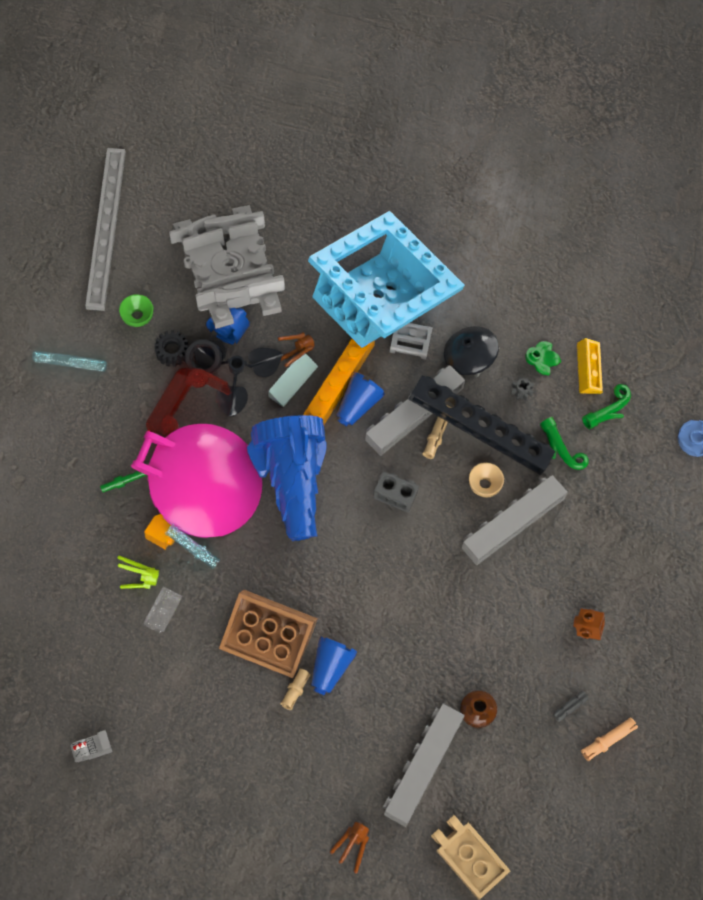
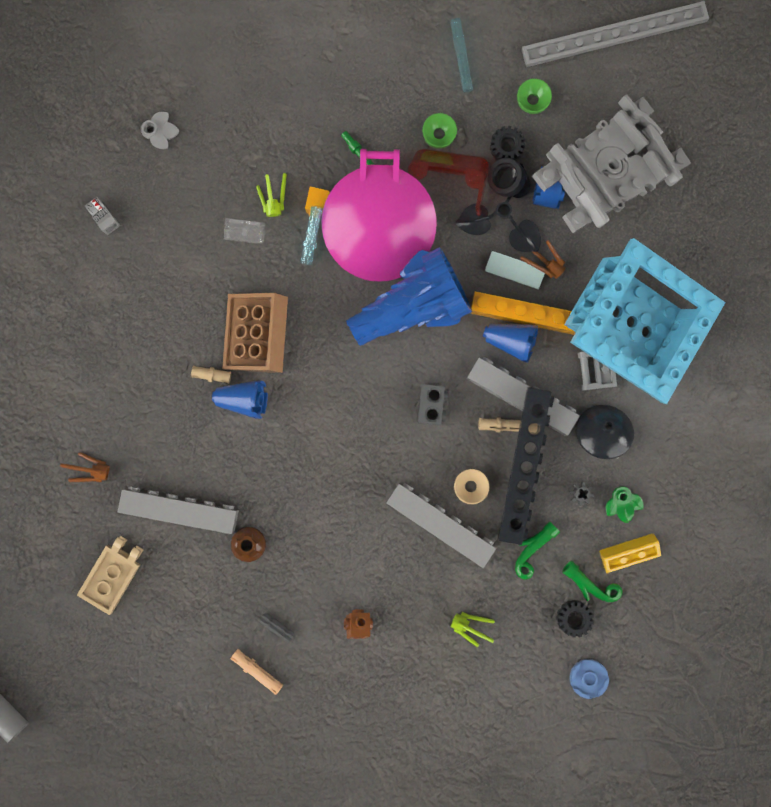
camera: 80 degrees right, 20 degrees up
(26, 660) = (162, 131): none -> light grey plate
(135, 393) = (442, 122): none -> bright green piece
(613, 532) = (461, 624): none -> lime plant
(639, 442) = (586, 622): none -> black tyre

